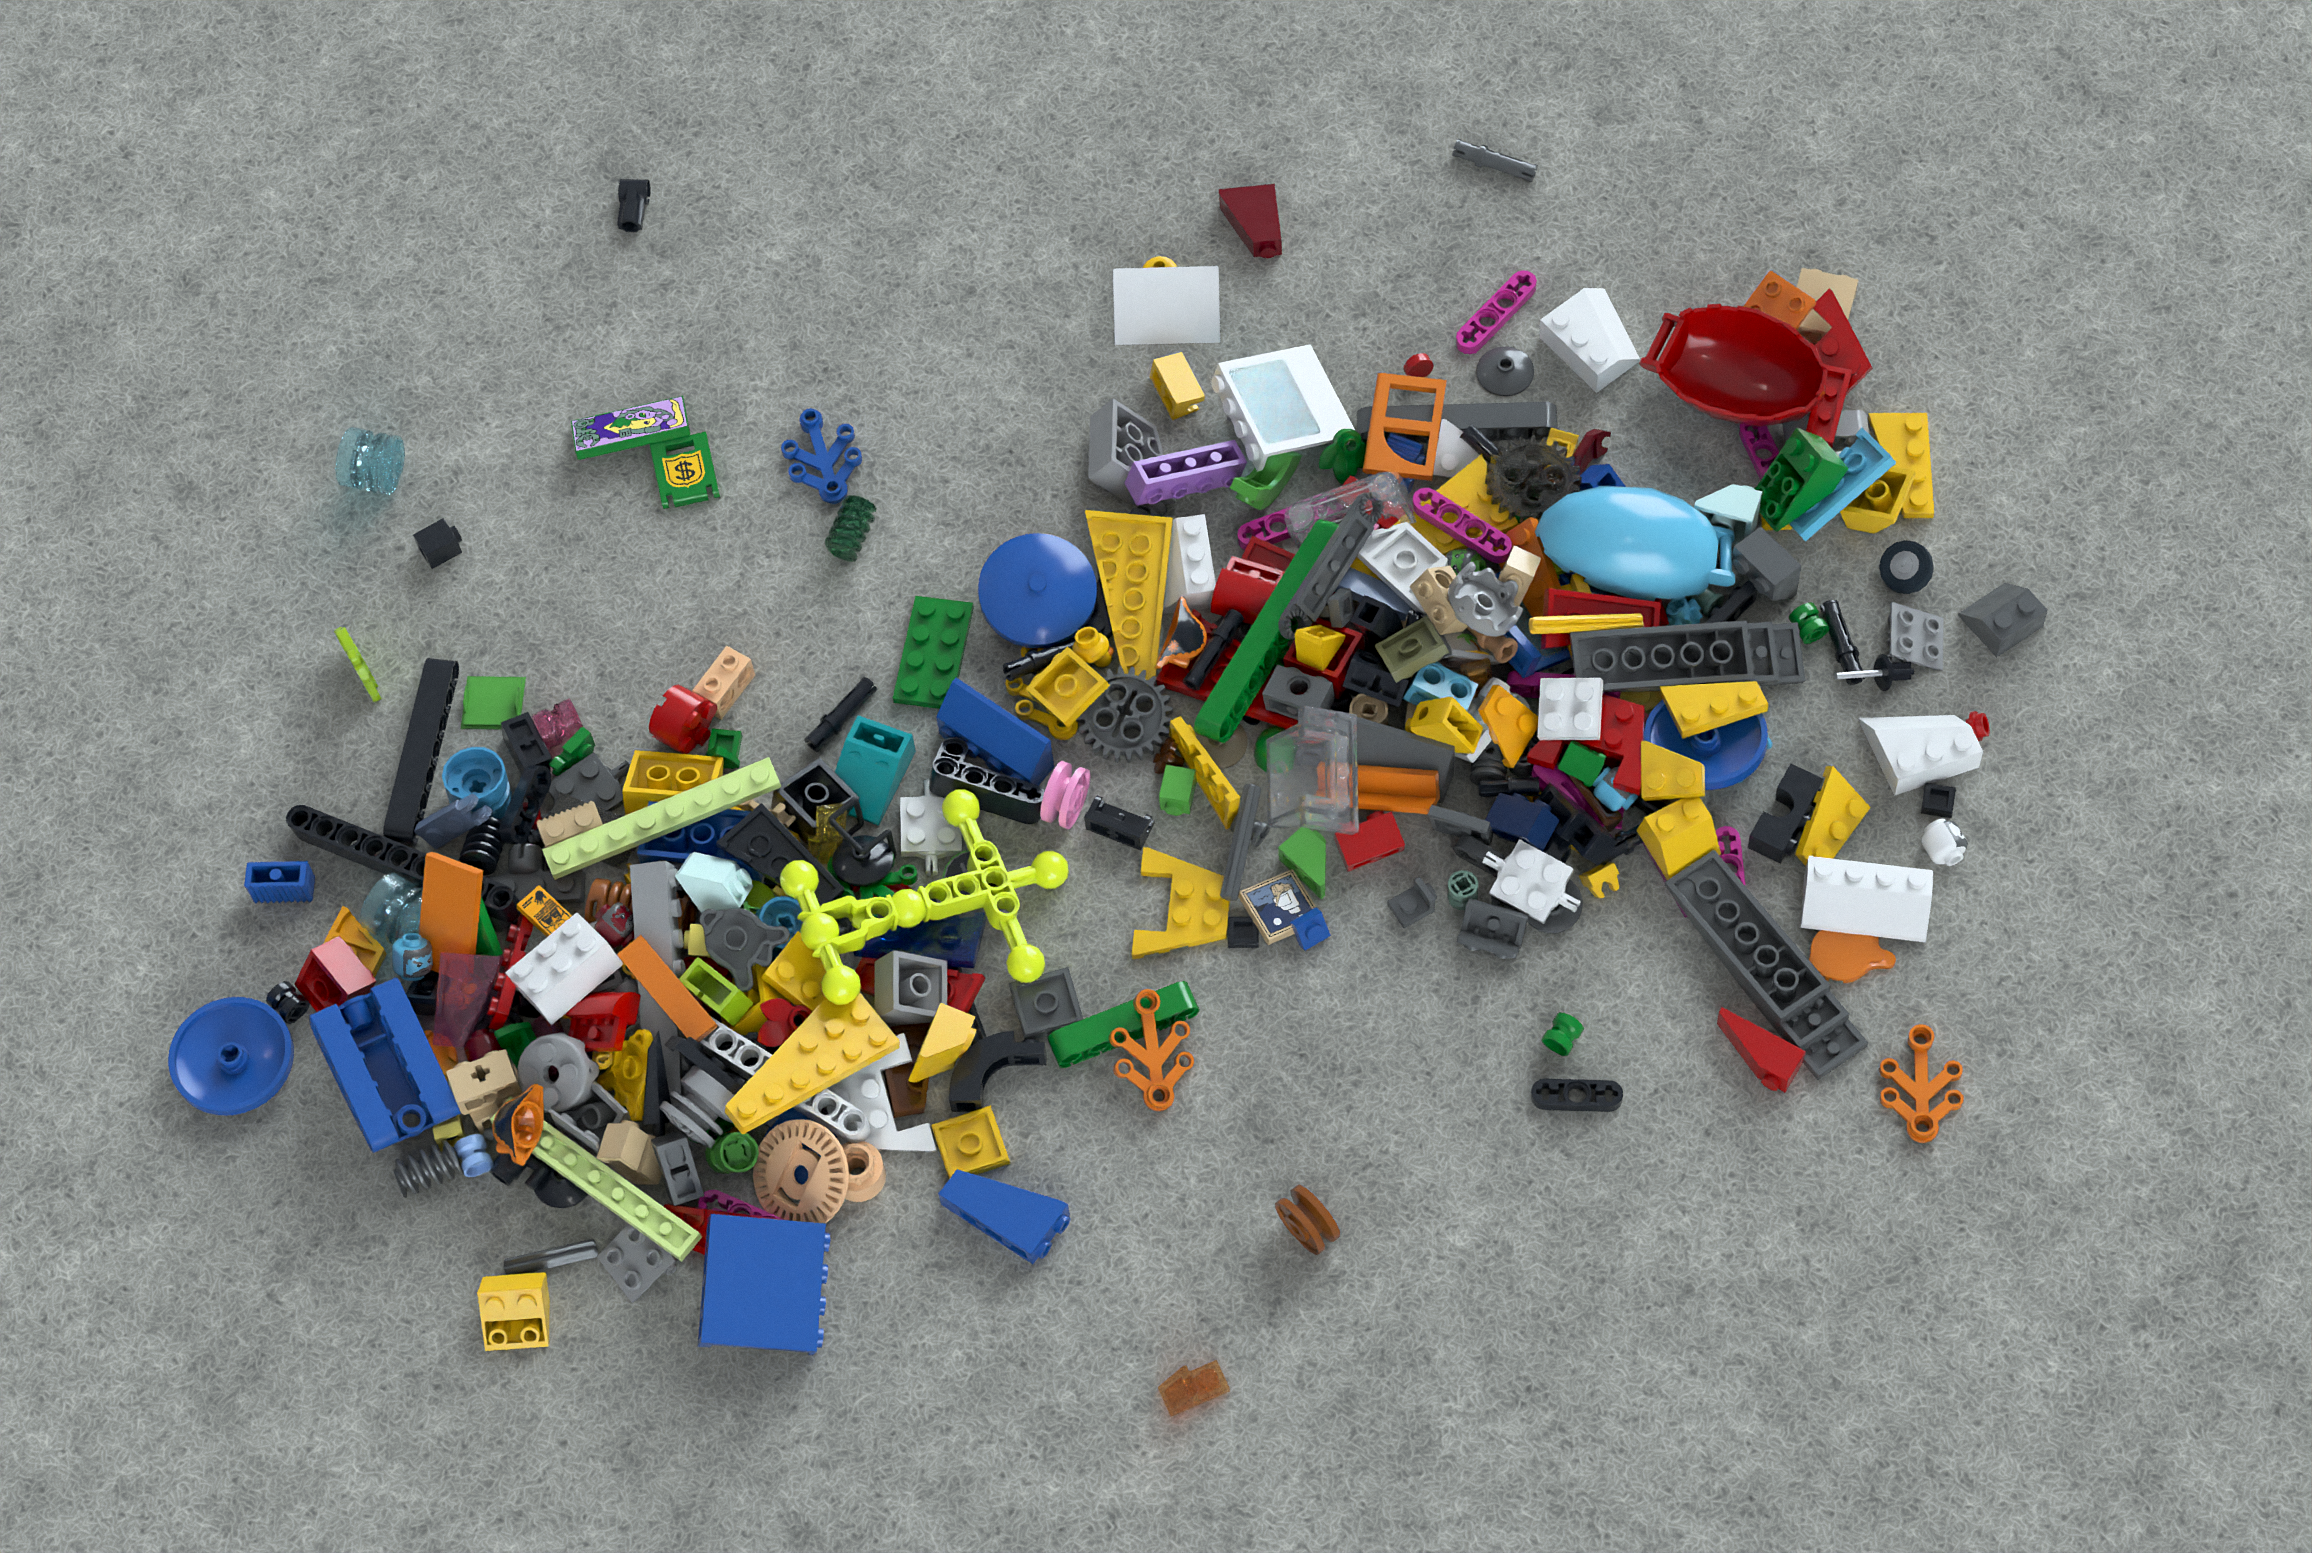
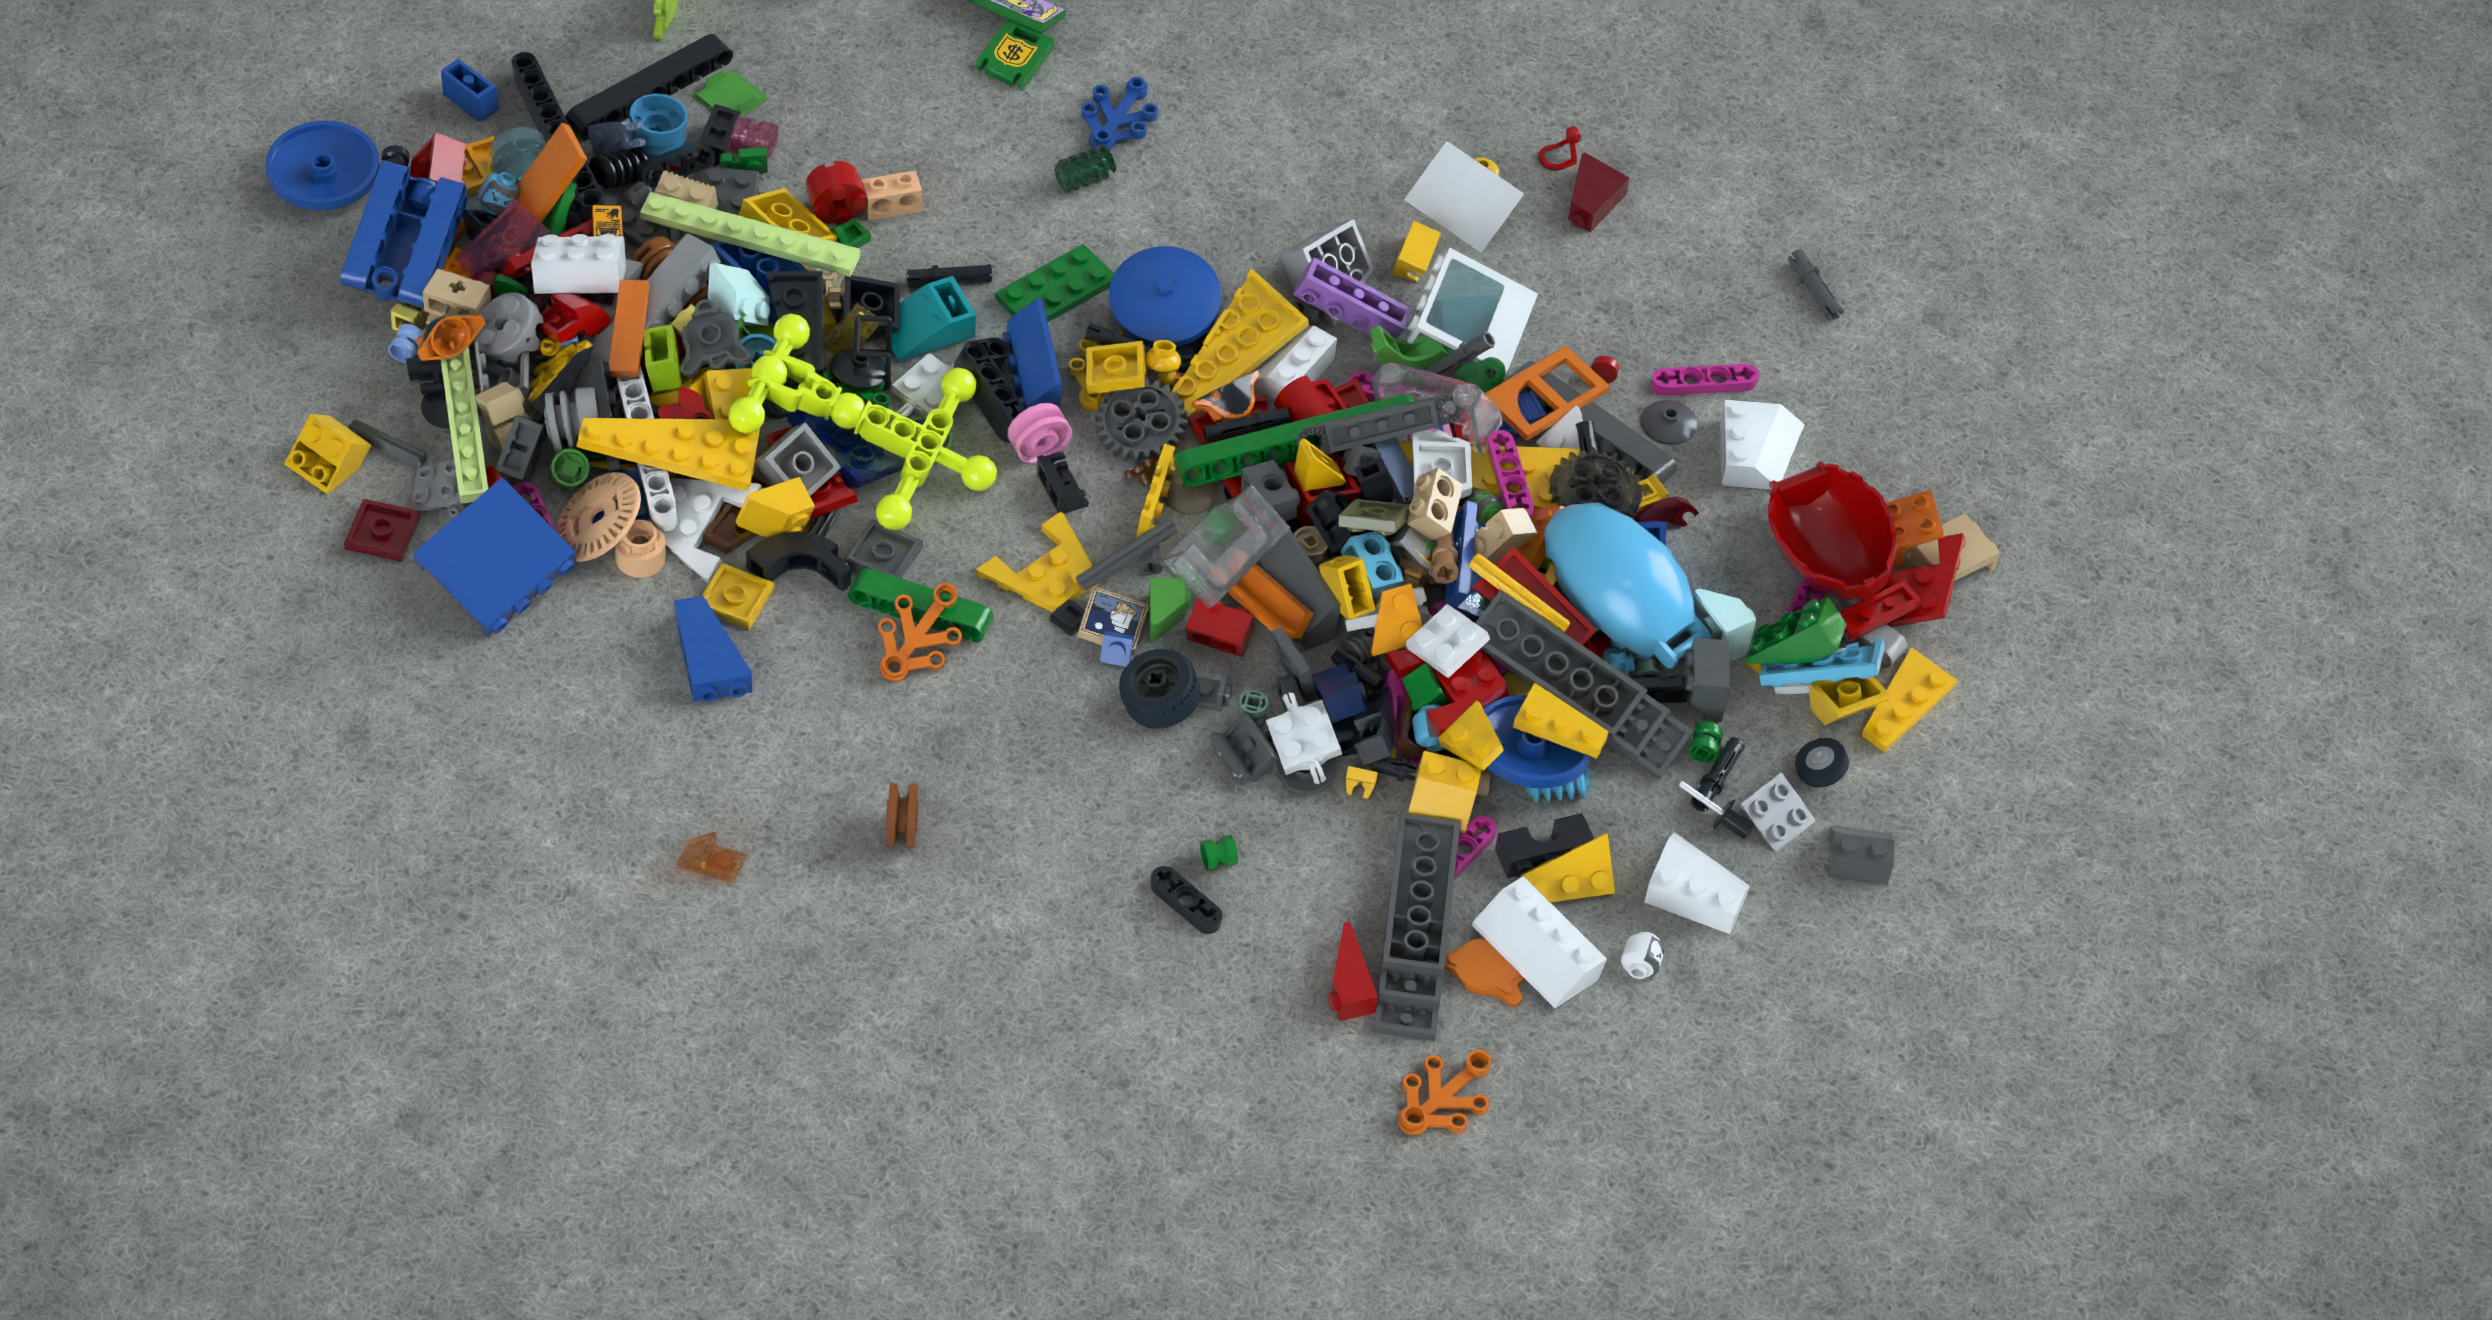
camera: 30 degrees right, 10 degrees down
(427, 1168) = (366, 328): dark grey piece -> none
(615, 924) = (642, 264): dark red head -> none
(632, 1338) = (382, 530): none -> dark red plate
(1177, 790) = (1124, 494): bright green brick -> none
(1194, 182) = (1573, 137): none -> red piece
(1319, 444) = (1464, 354): none -> dark grey pin
(1370, 919) = (1159, 688): none -> black wheel
(1484, 601) = (1469, 514): light grey plate -> none
(1938, 800) = (1672, 929): black tile -> none
(1979, 724) = (1757, 903): red plate -> none

